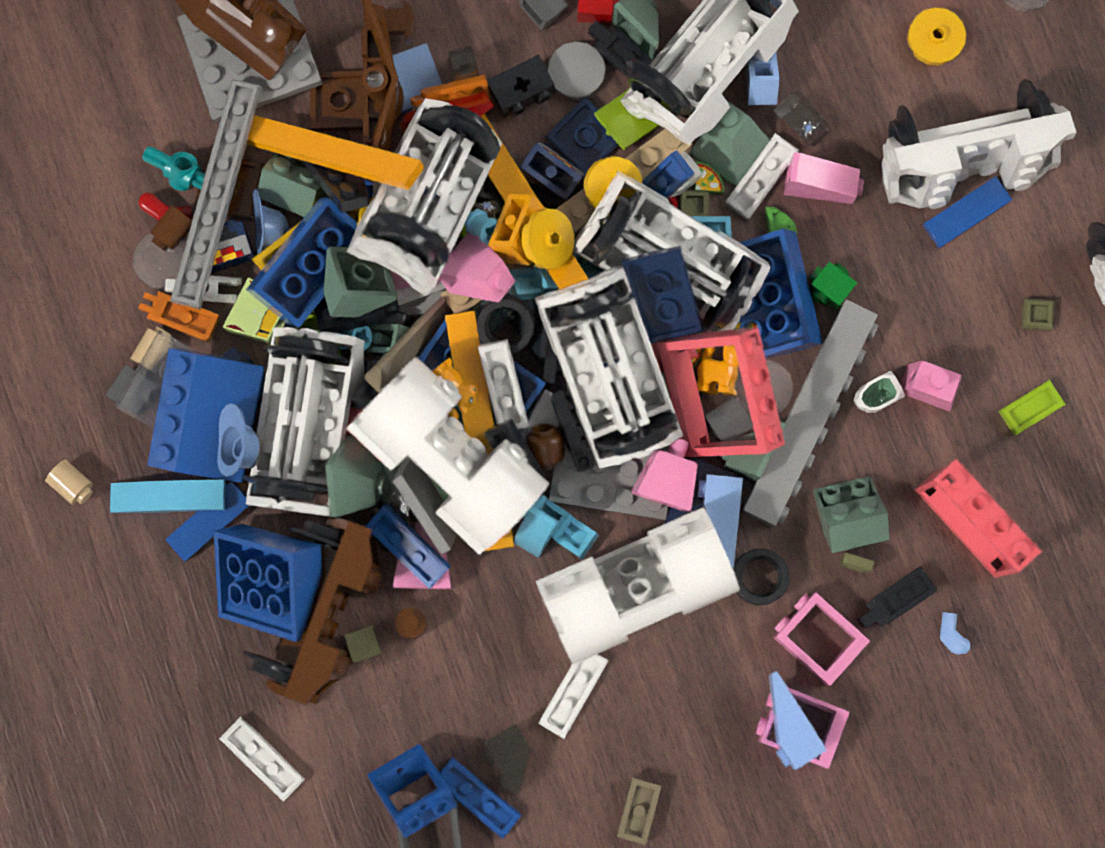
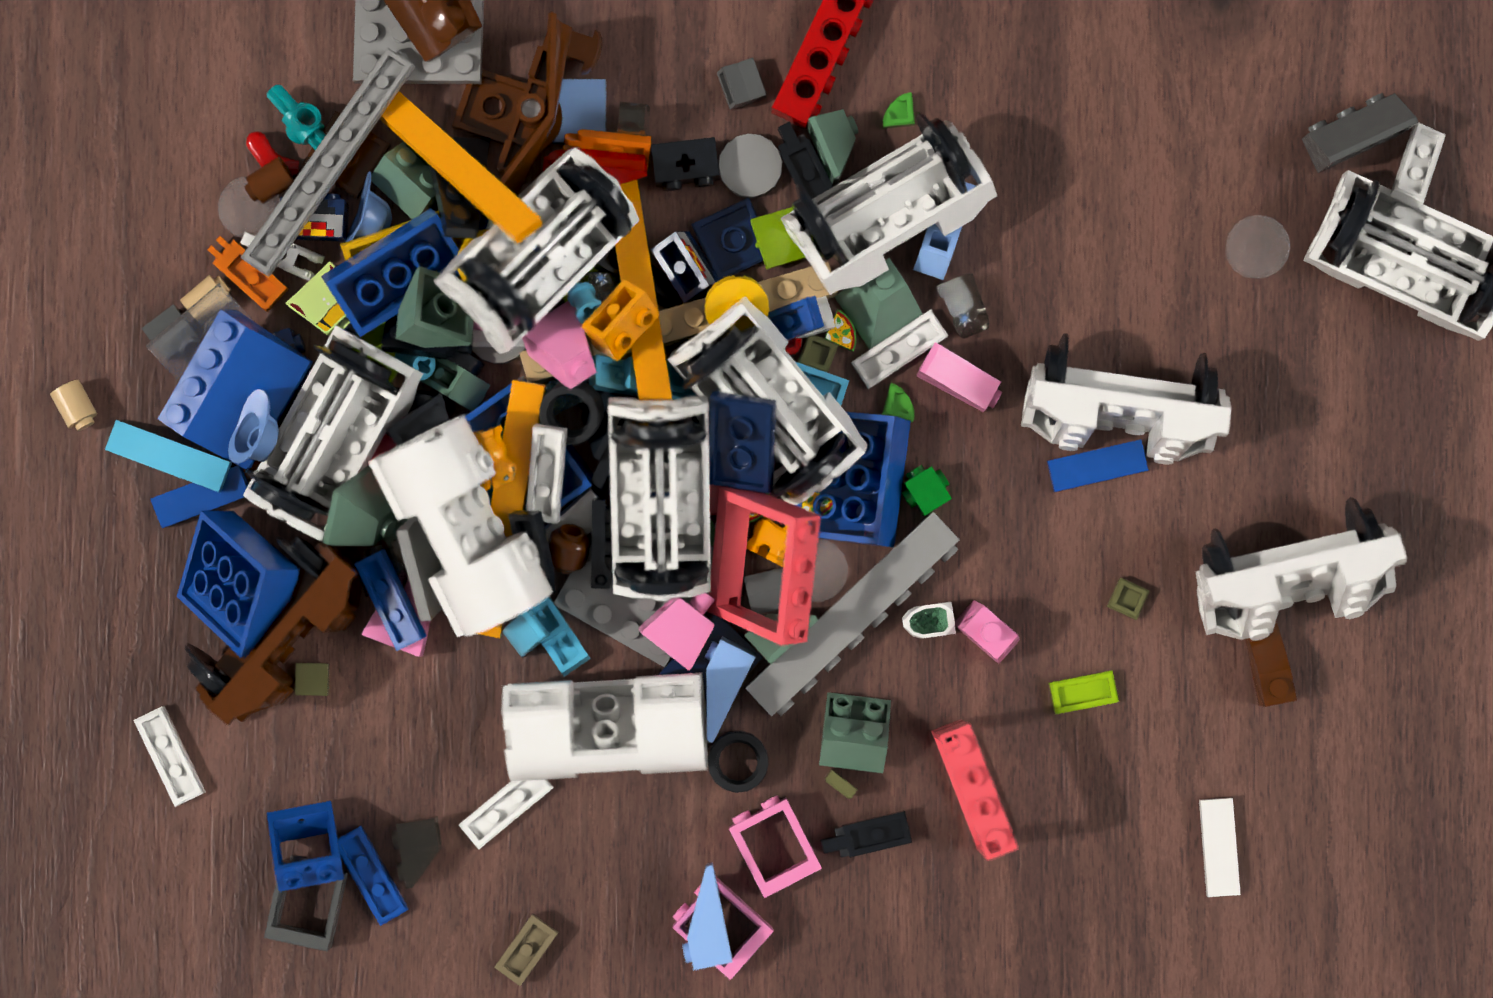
camera: 20 degrees right, 5 degrees up
(407, 346) = (464, 396): dark tan slope -> none
(411, 623) = (367, 677): reddish brown brick -> none
(548, 238) = (632, 340): yellow plate -> none
(934, 50) = (1125, 278): yellow plate -> none
(951, 637) = (907, 892): light blue arm -> none

